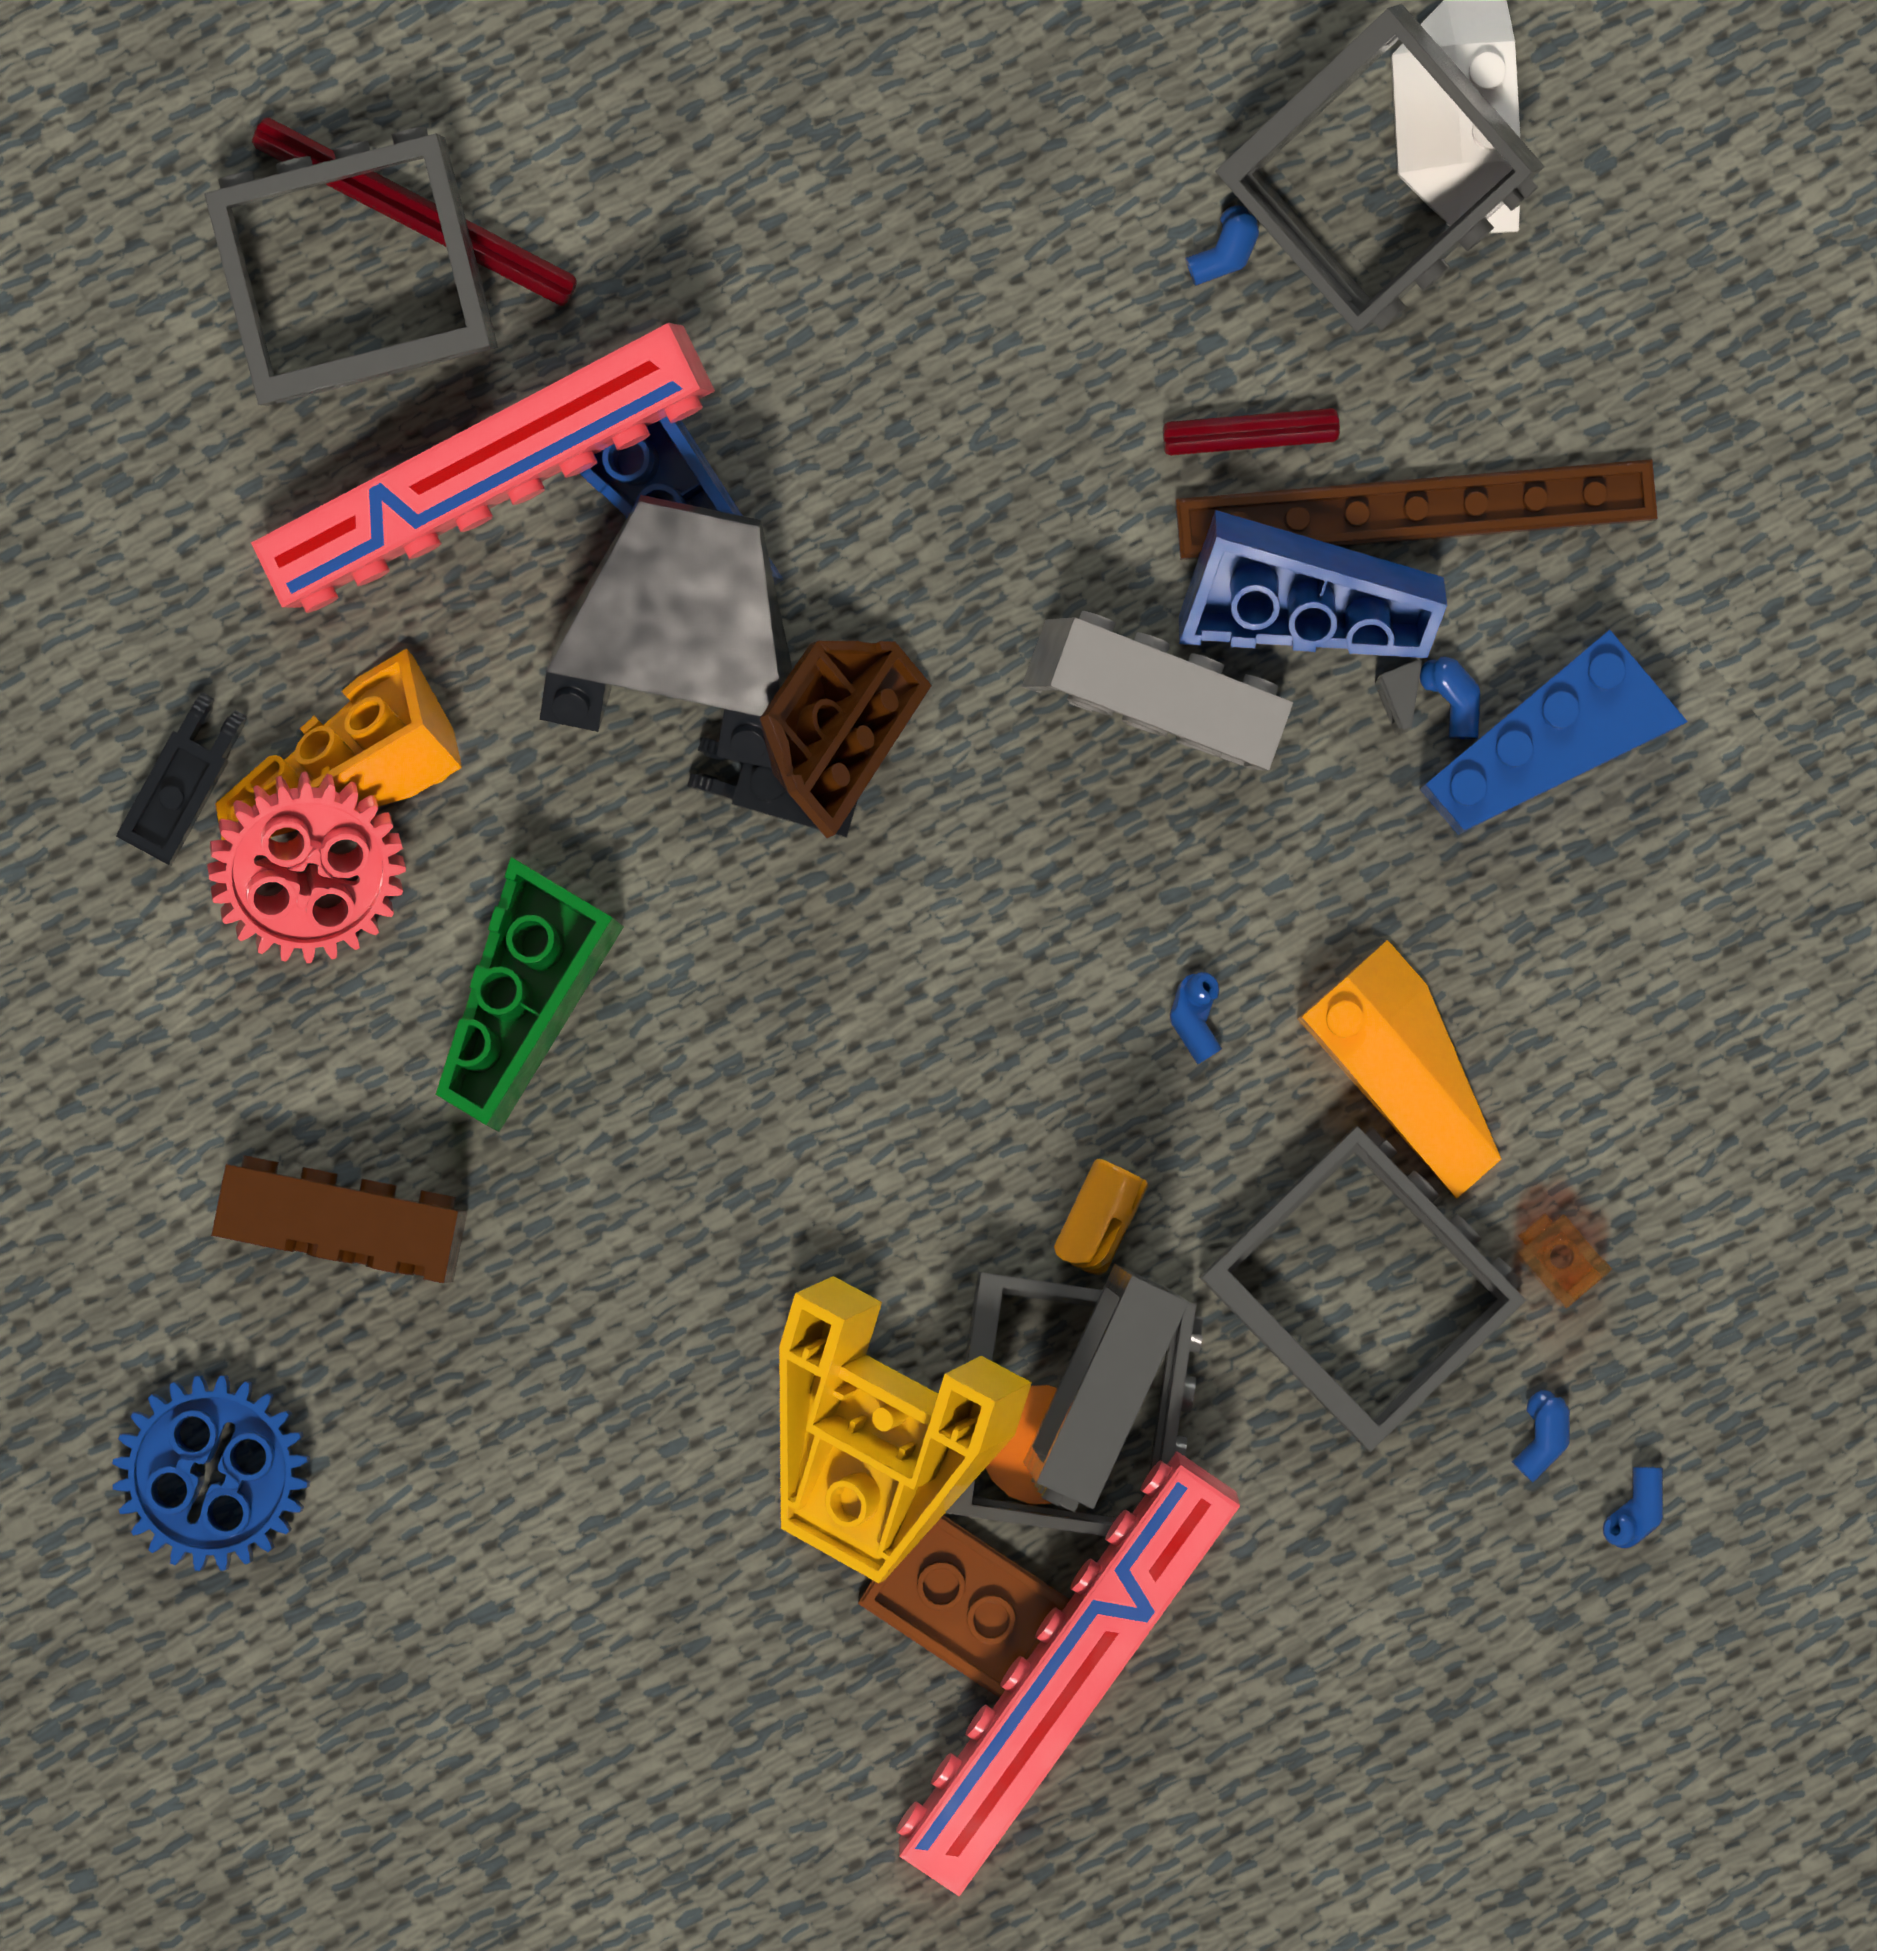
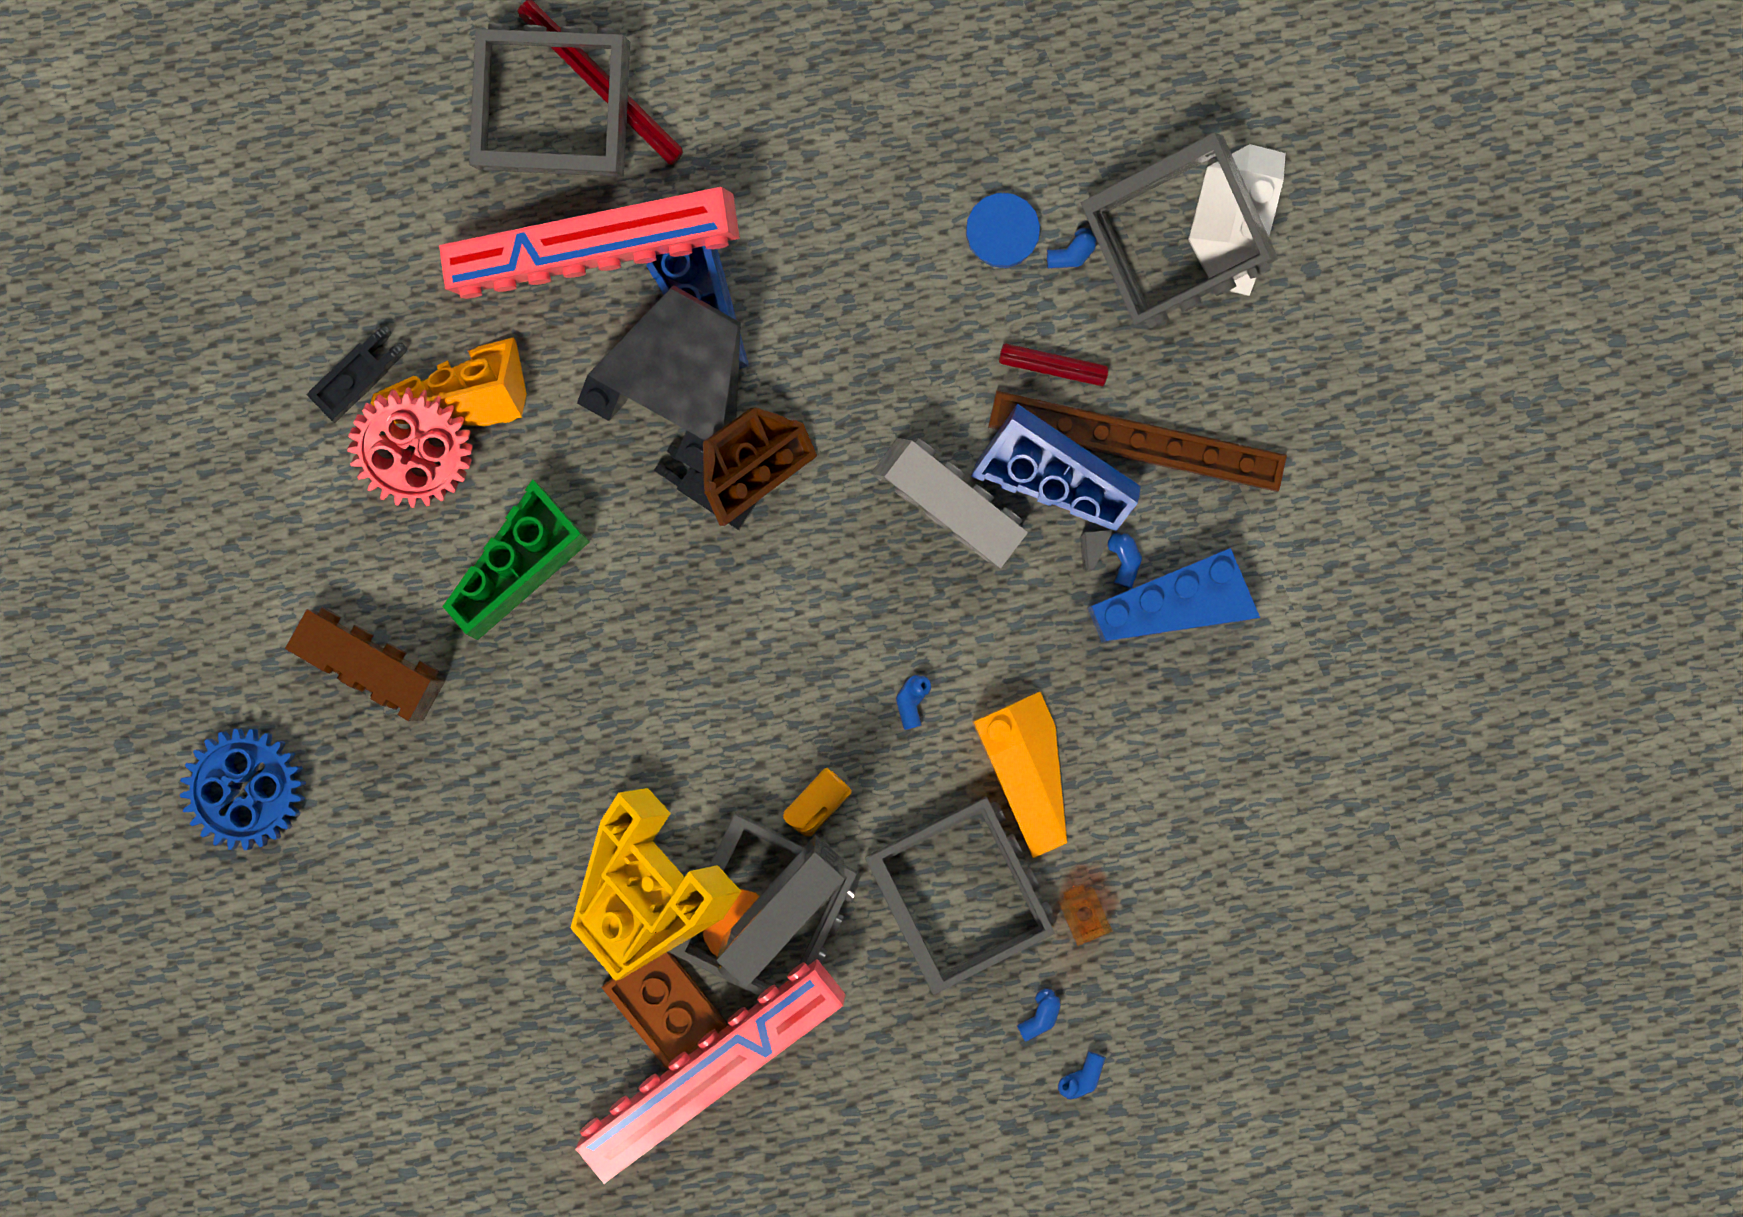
camera: 25 degrees right, 0 degrees up
(1108, 248) = (1002, 230): none -> blue tile

